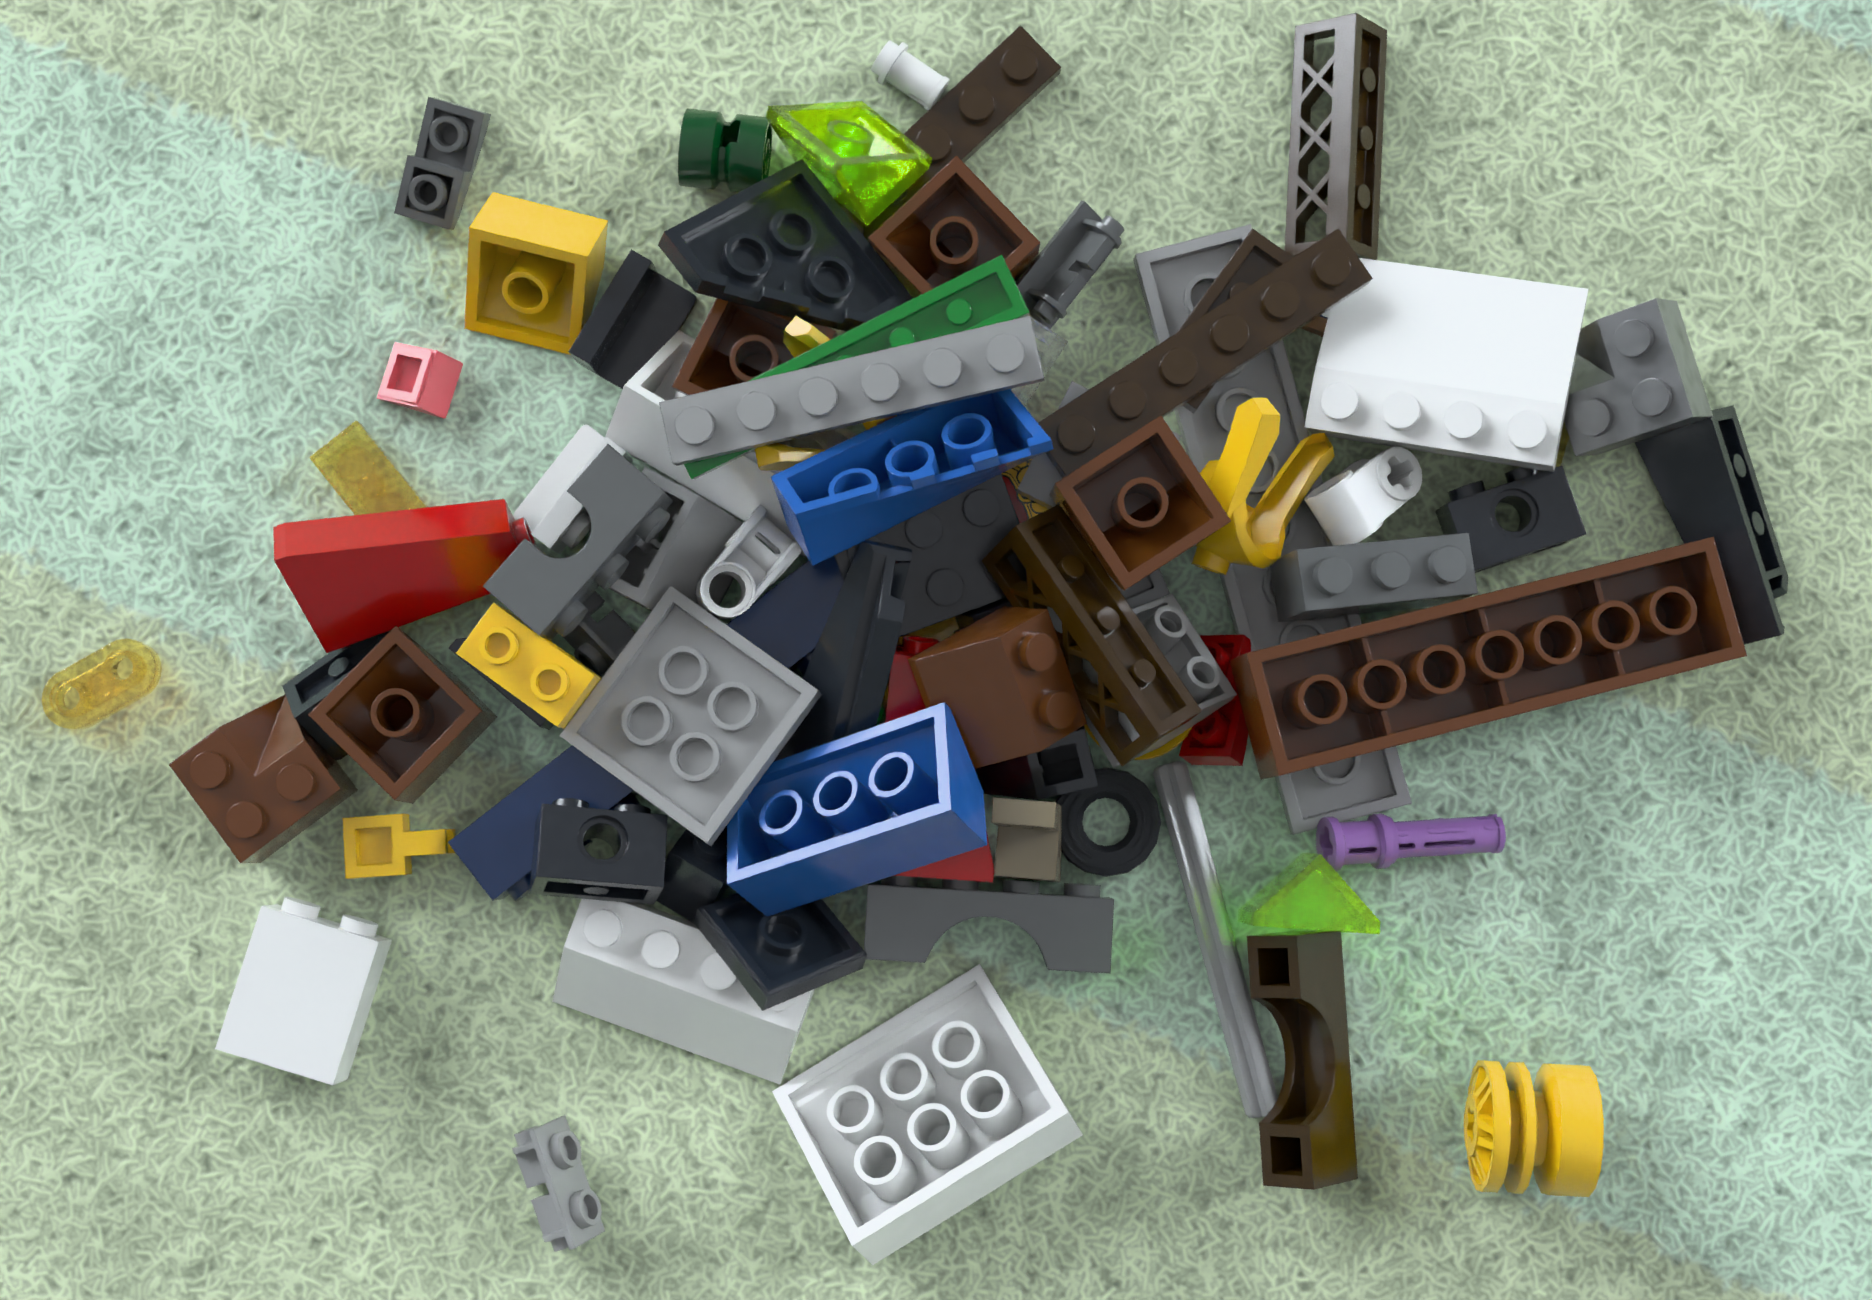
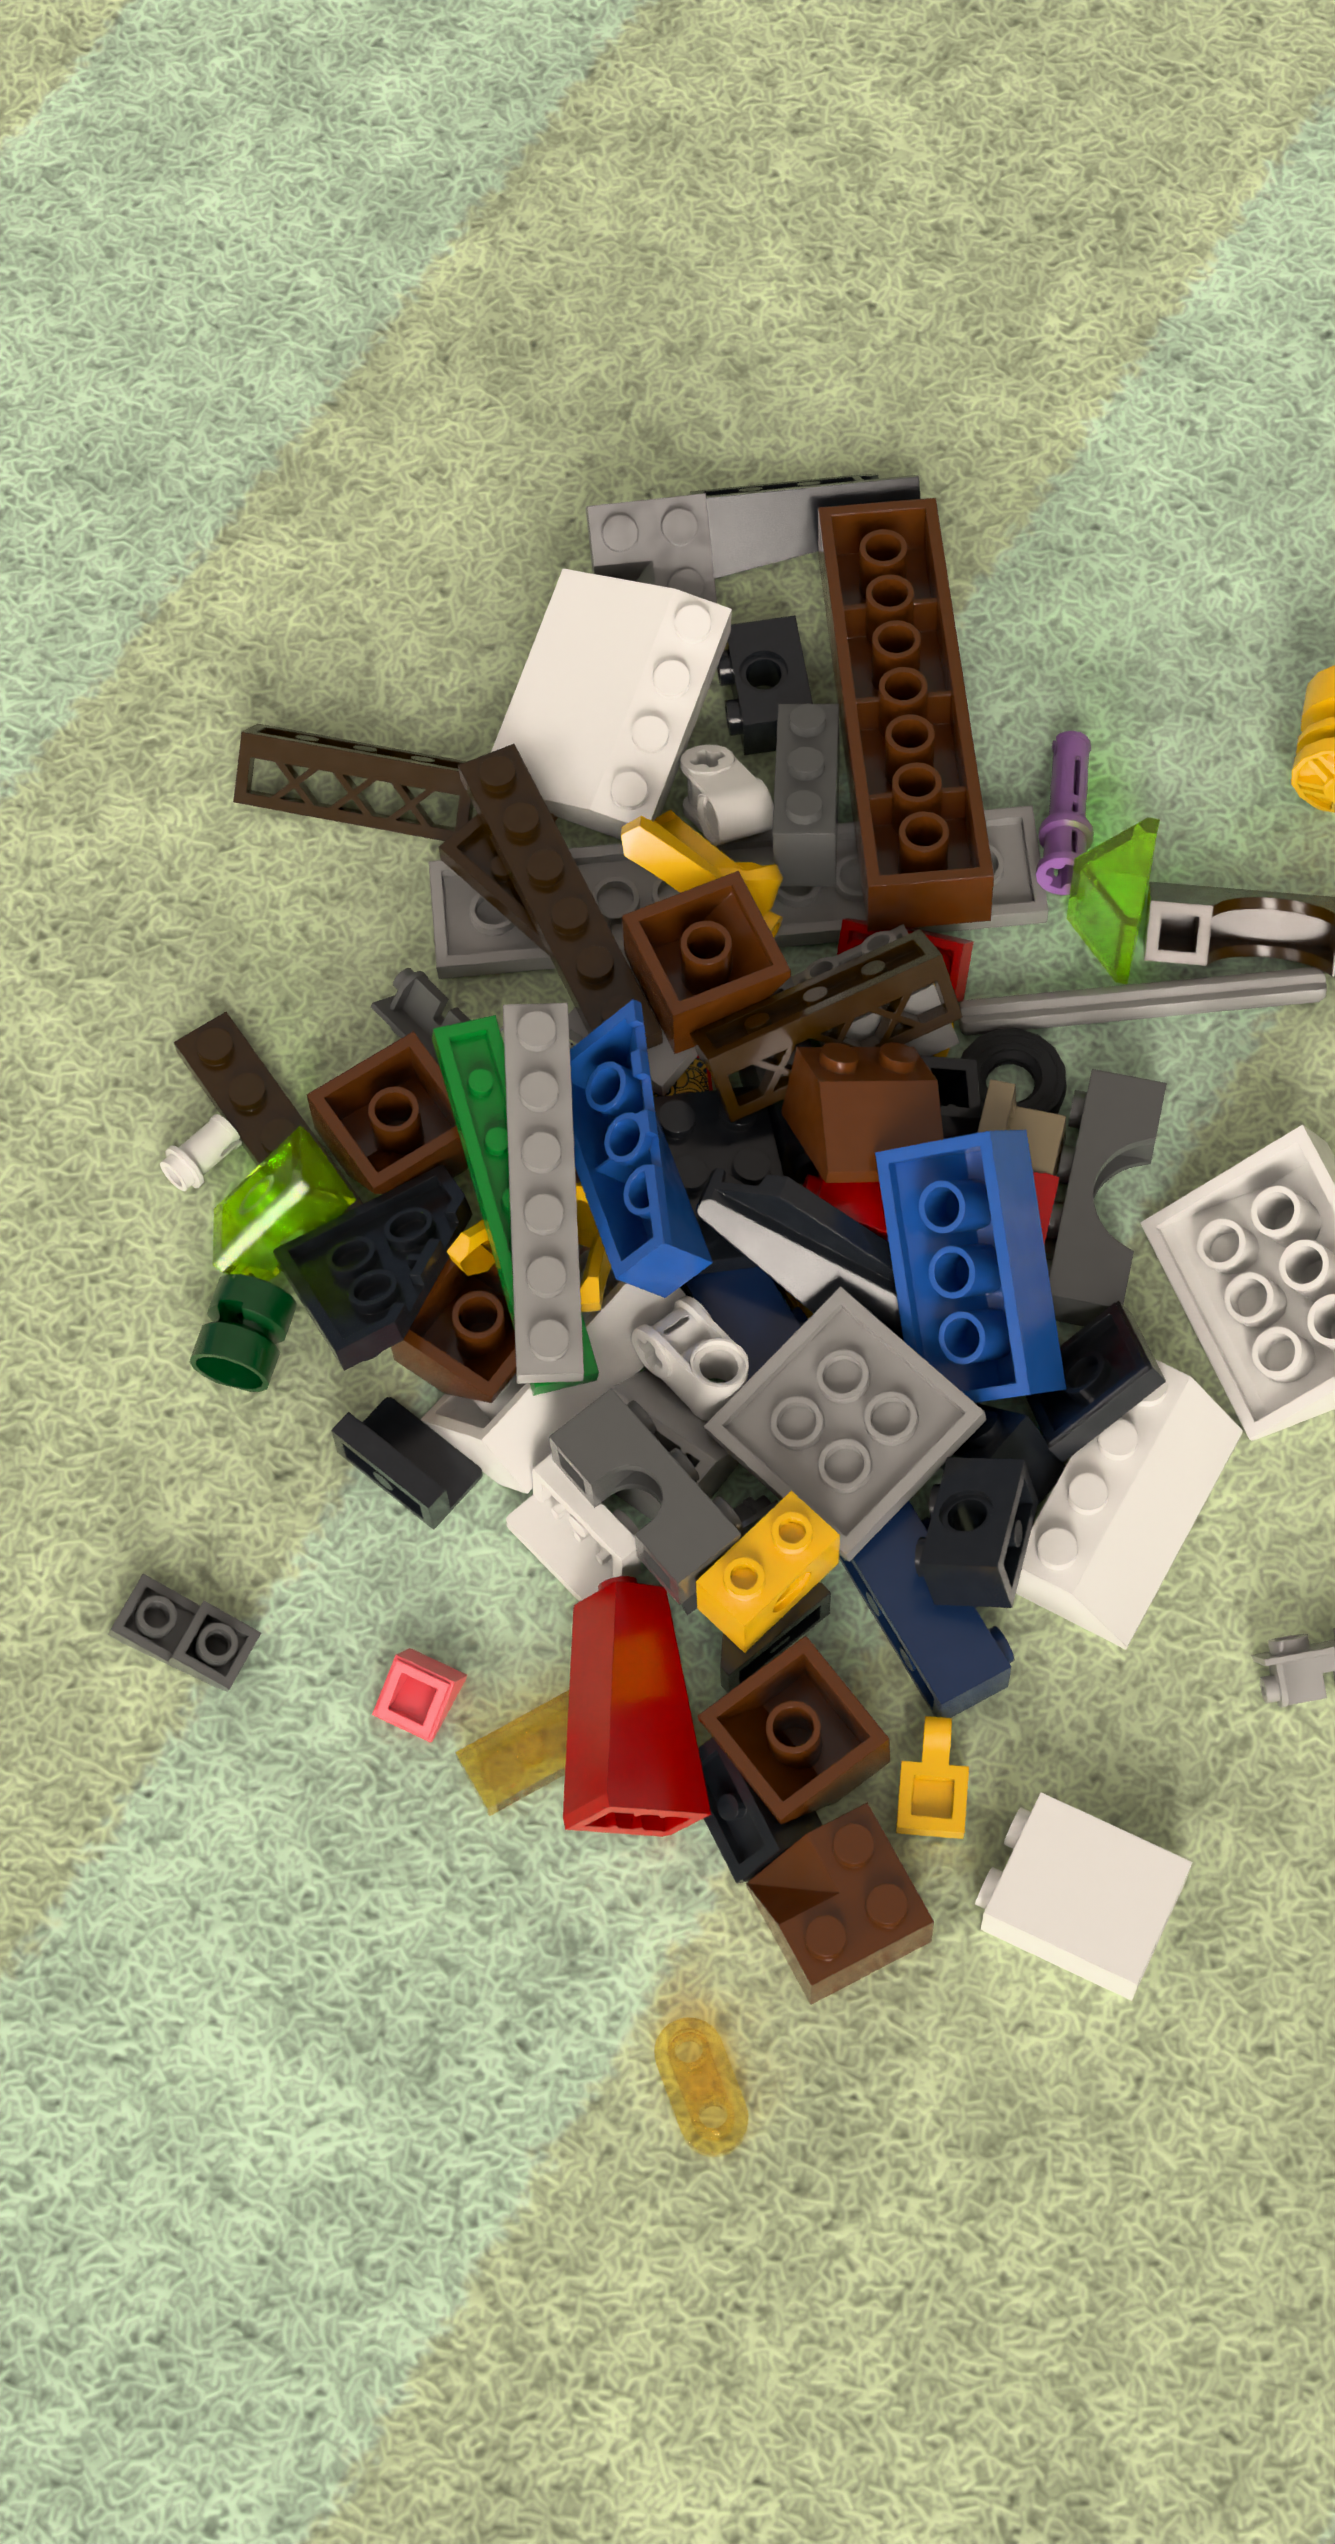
camera: 80 degrees left, 20 degrees down
(533, 271) = (331, 1545): yellow slope -> none

